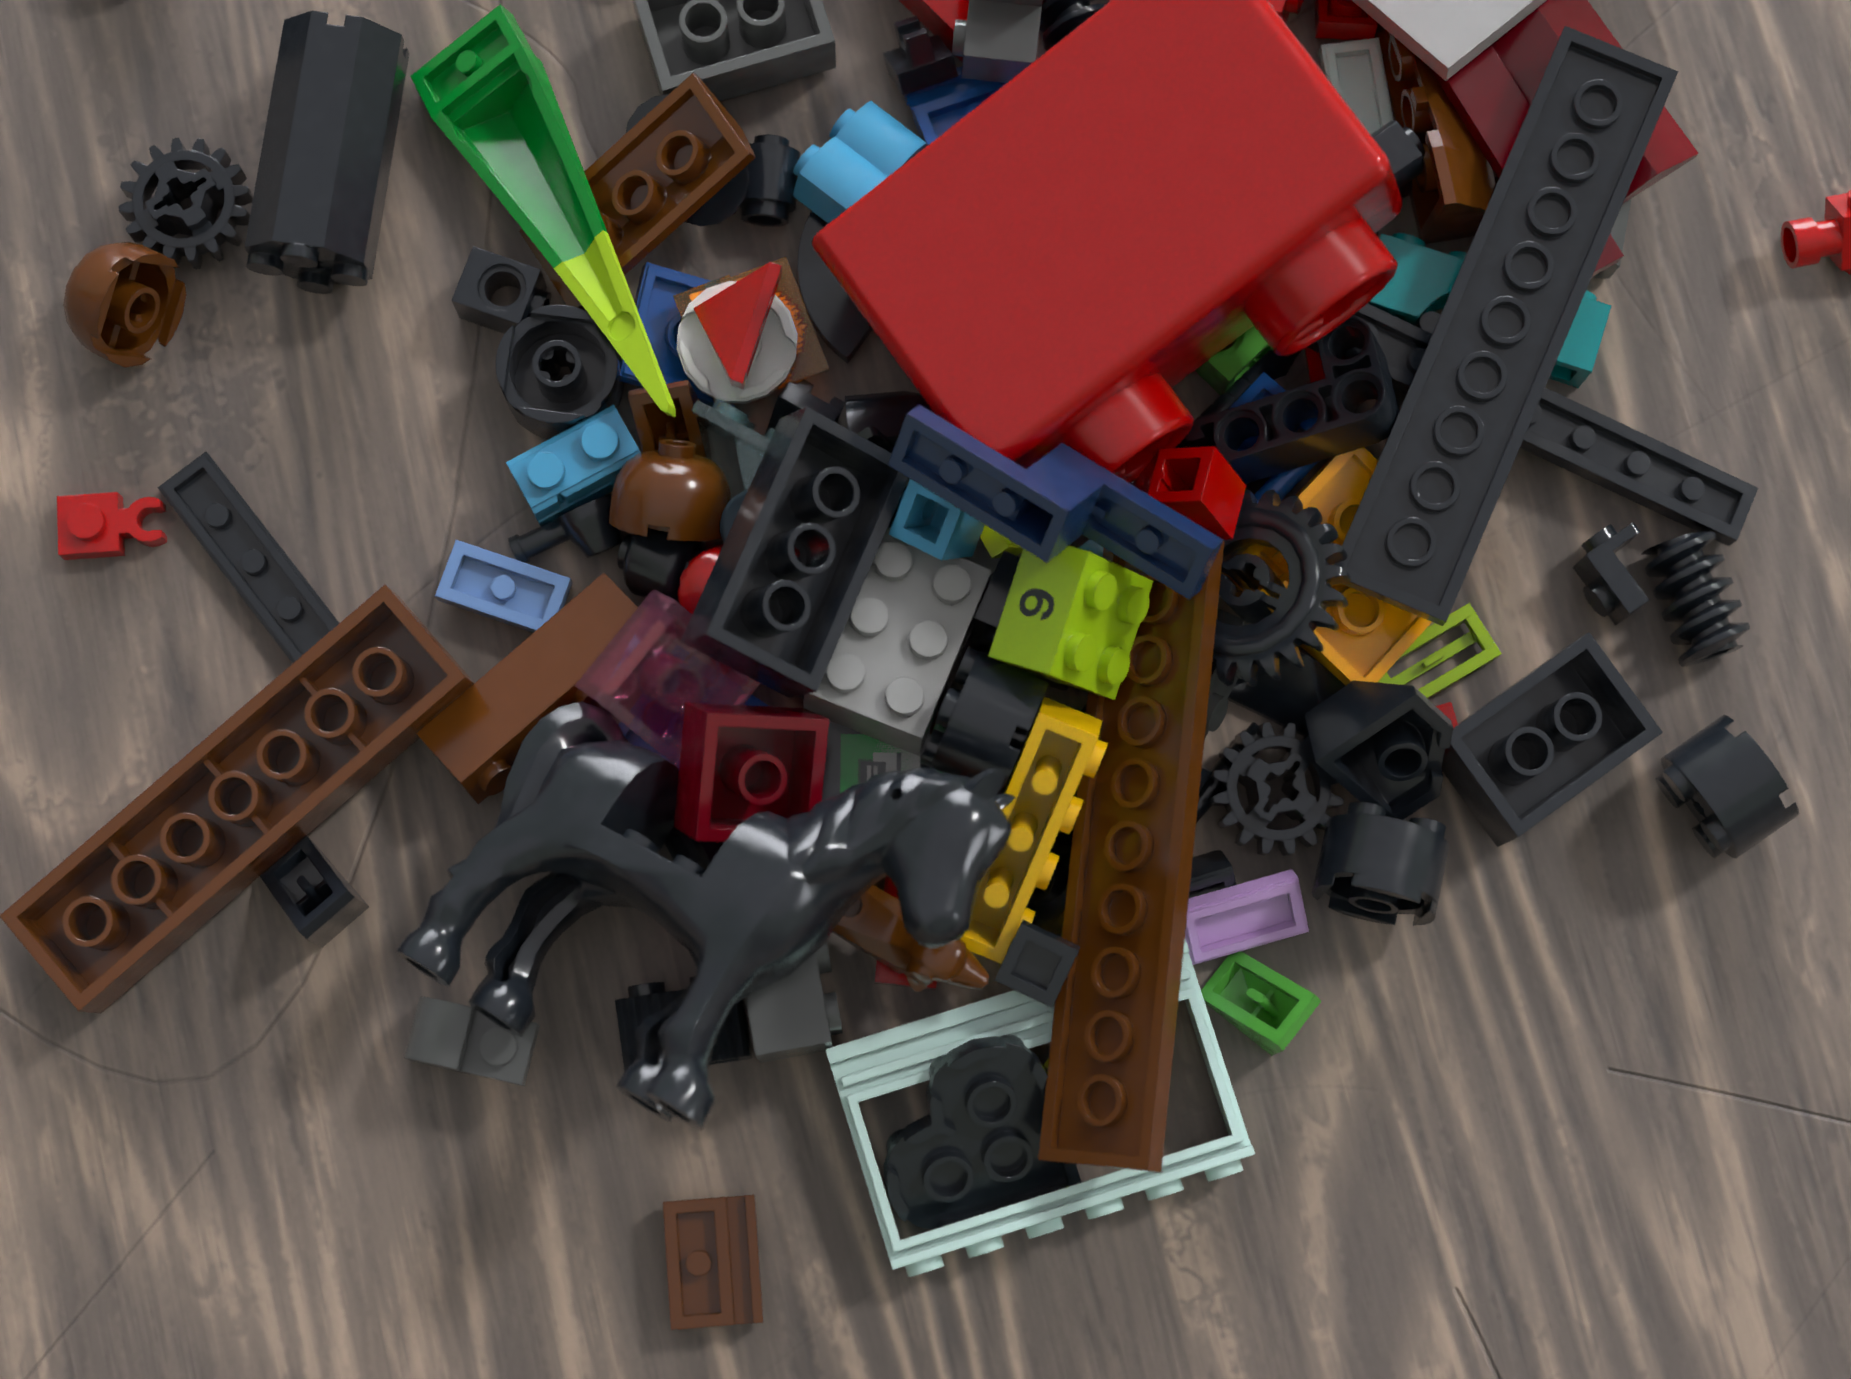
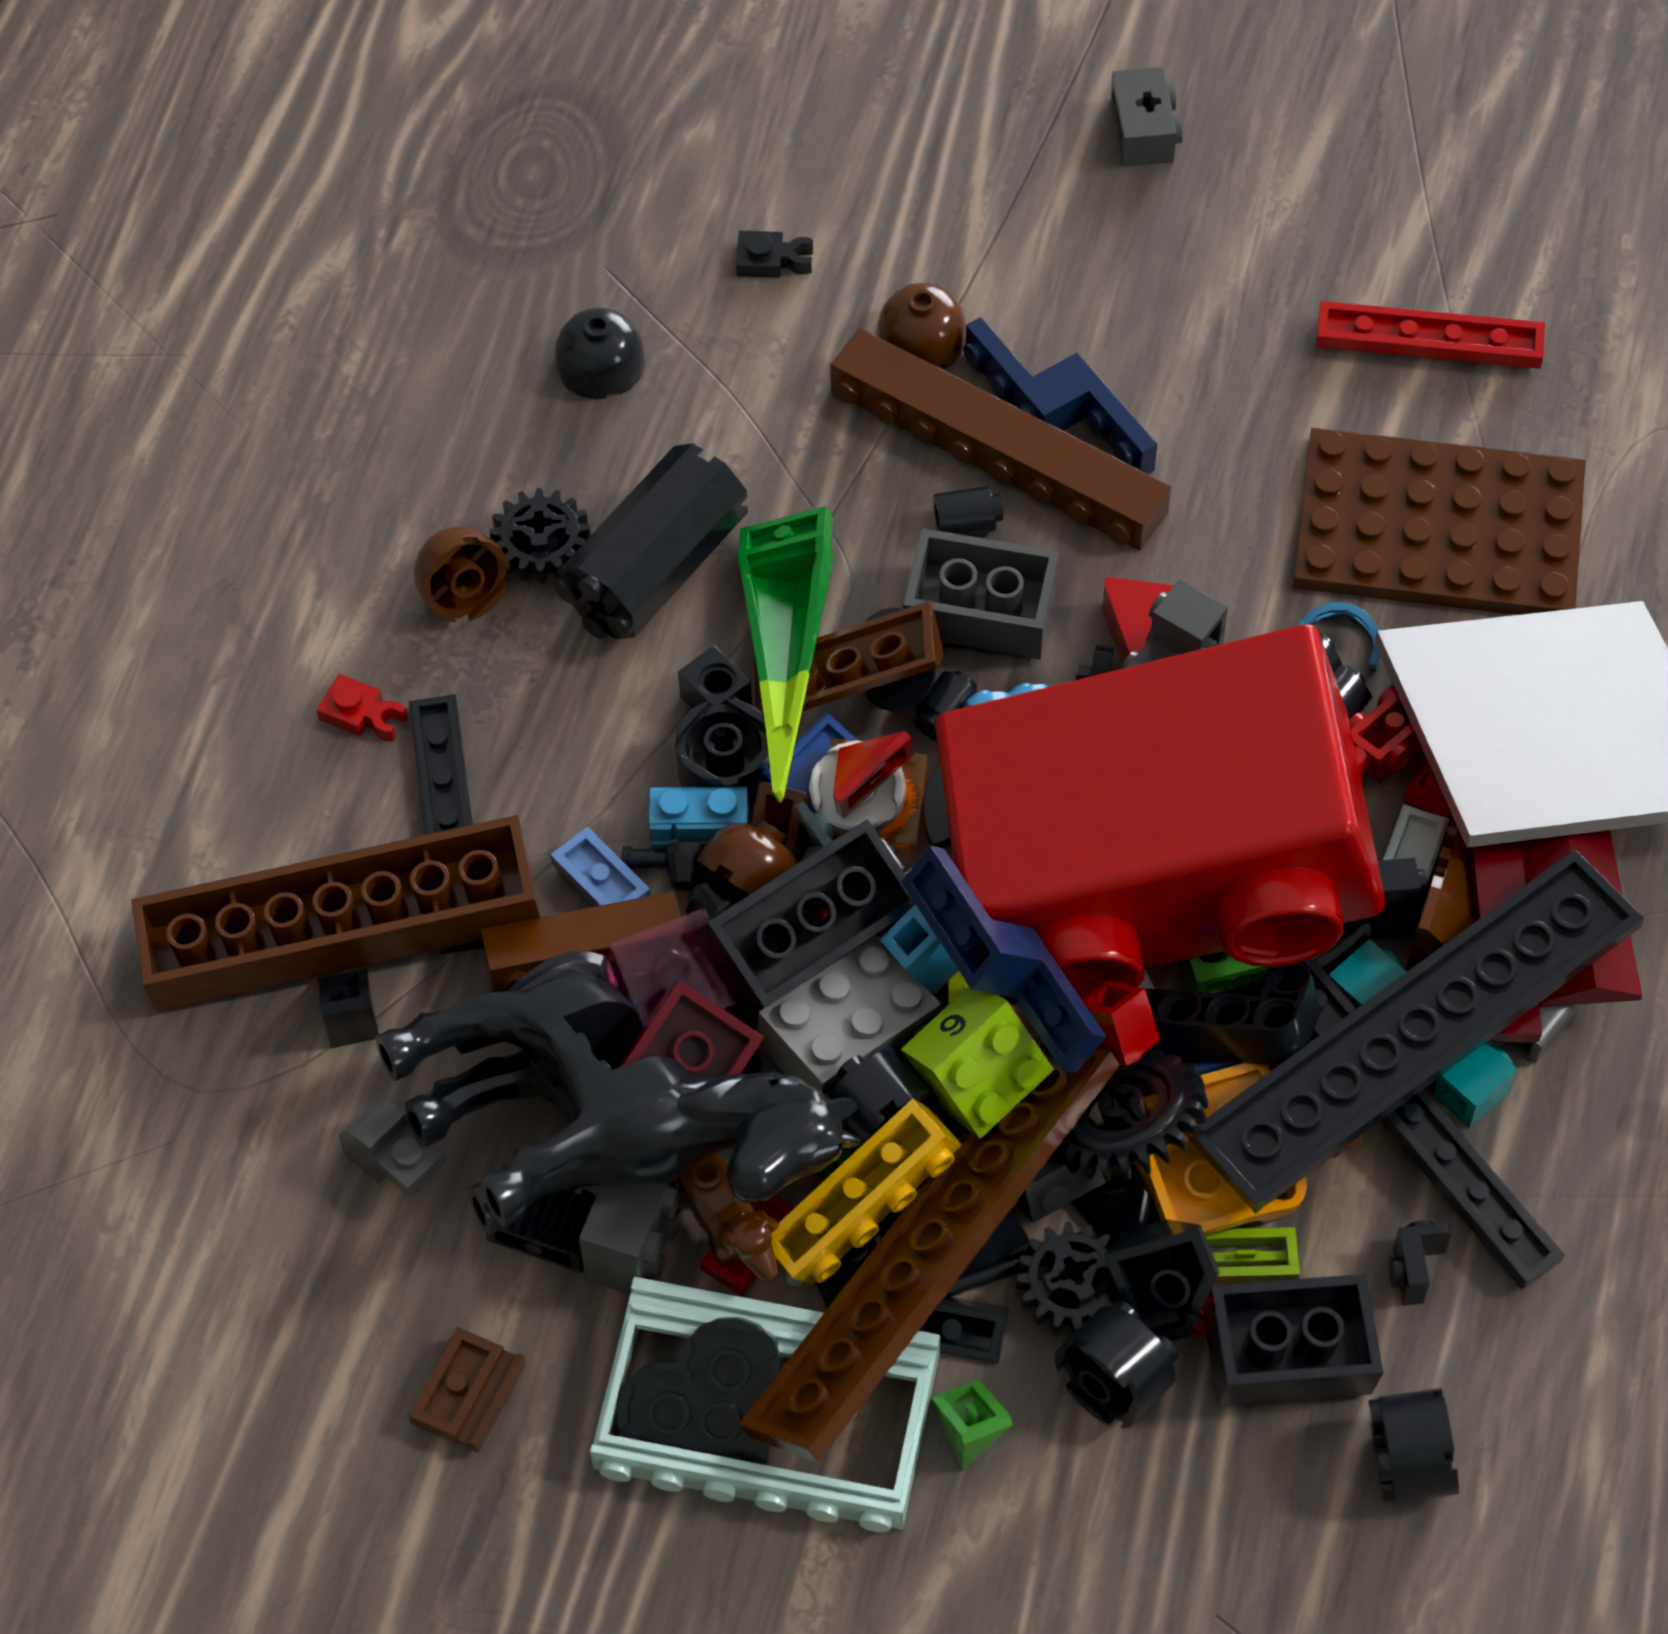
camera: 35 degrees right, 20 degrees down
(1037, 963) = (817, 1285): black tile -> none
(1245, 916) = (994, 1355): lavender tile -> none
(1695, 597) = (1469, 1308): black piece -> none

